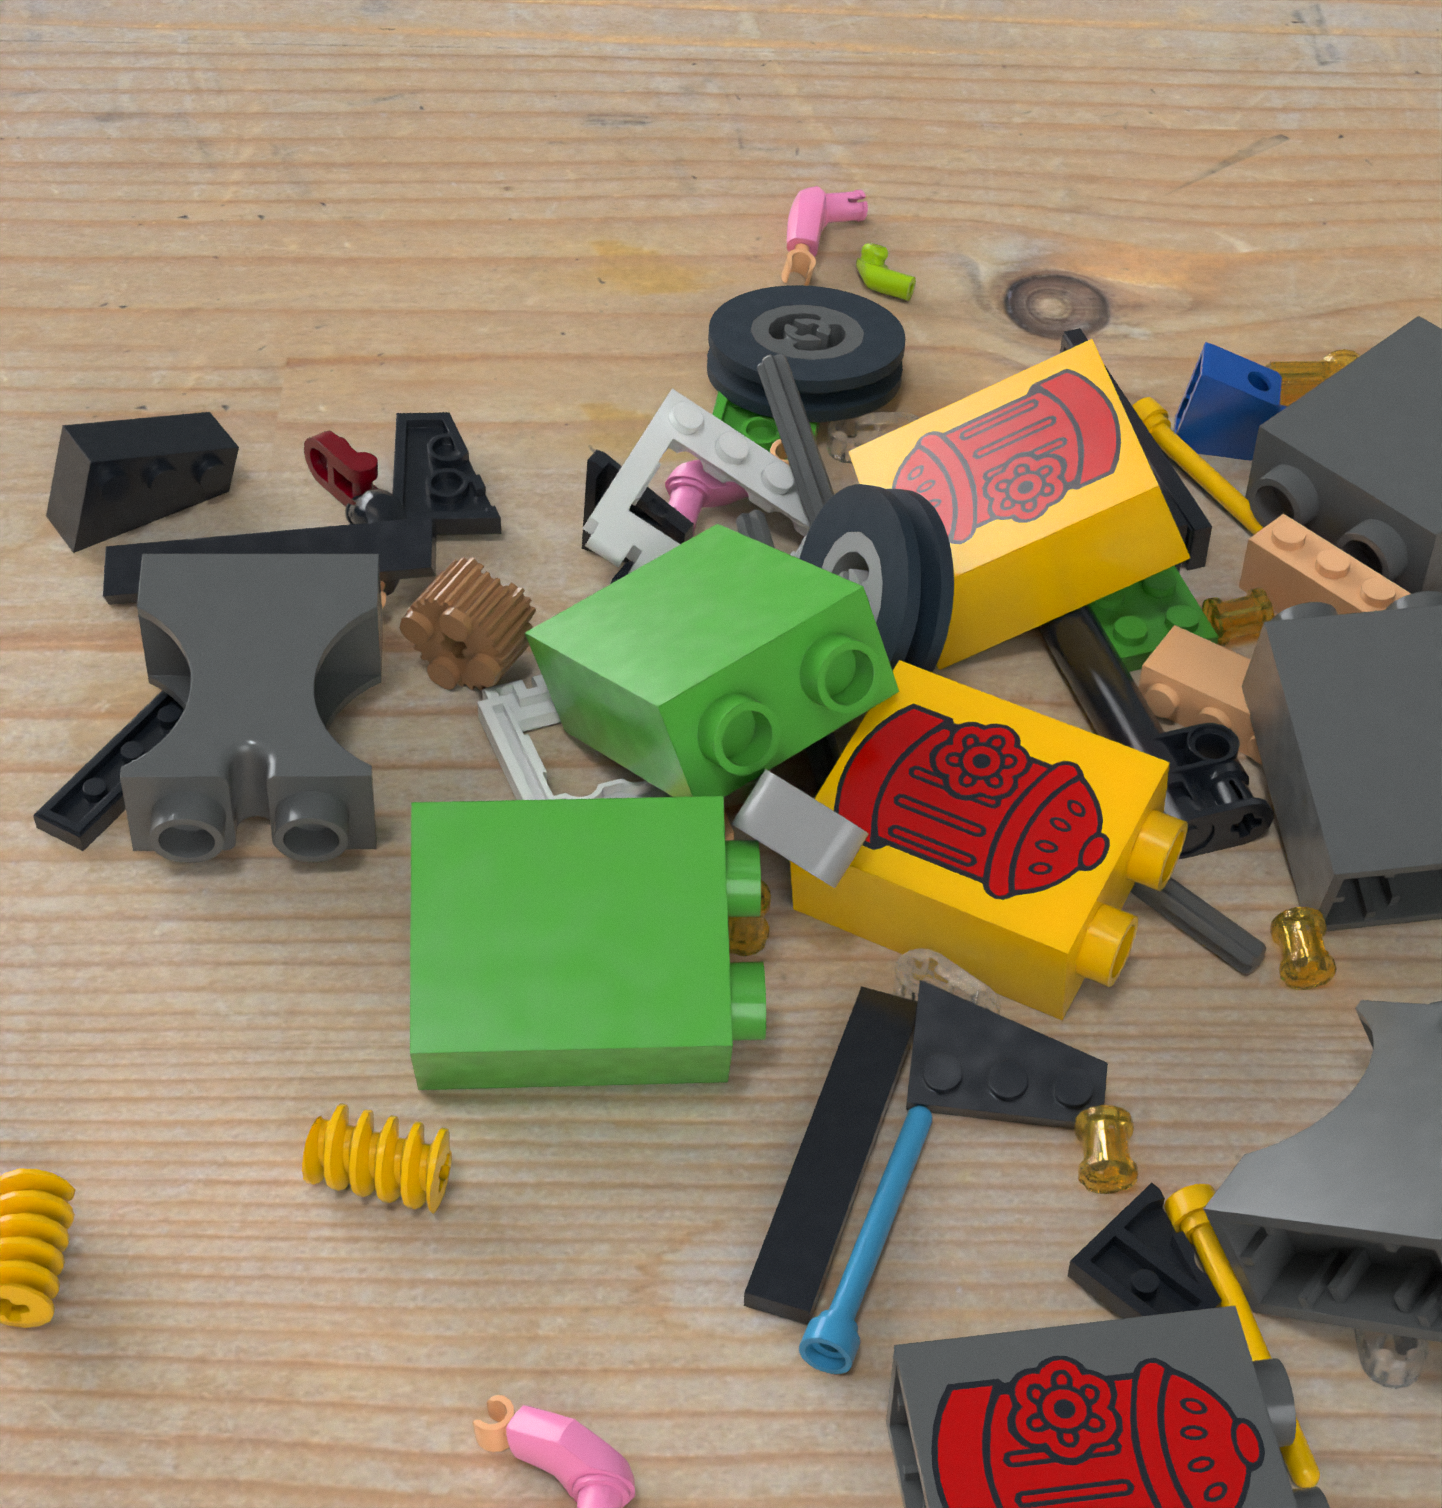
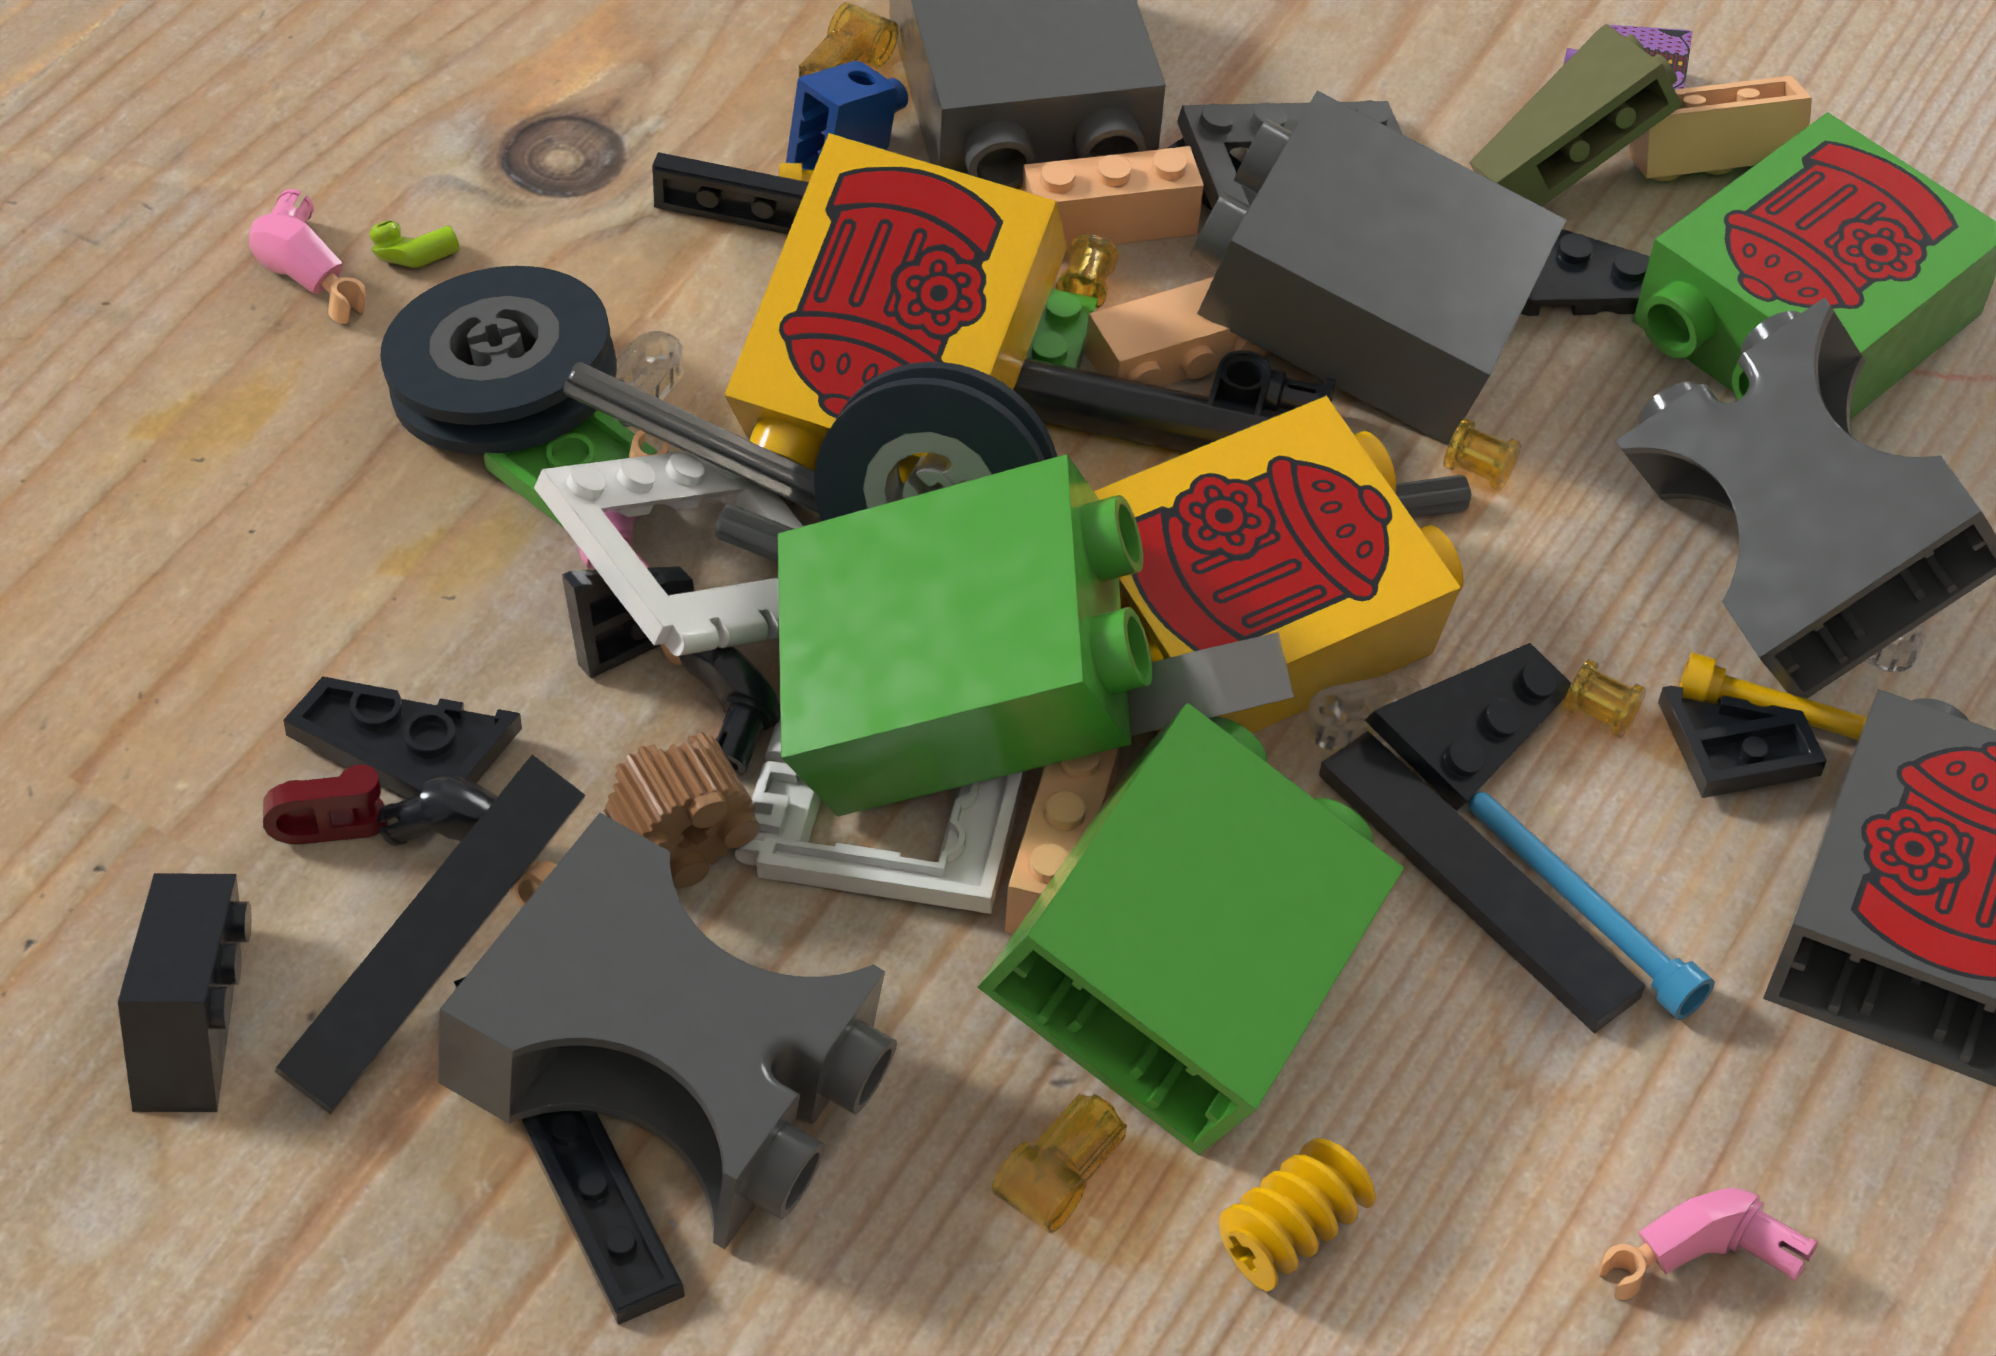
camera: 60 degrees left, 5 degrees up
(314, 993) = (1051, 1175): none -> clear yellow piece

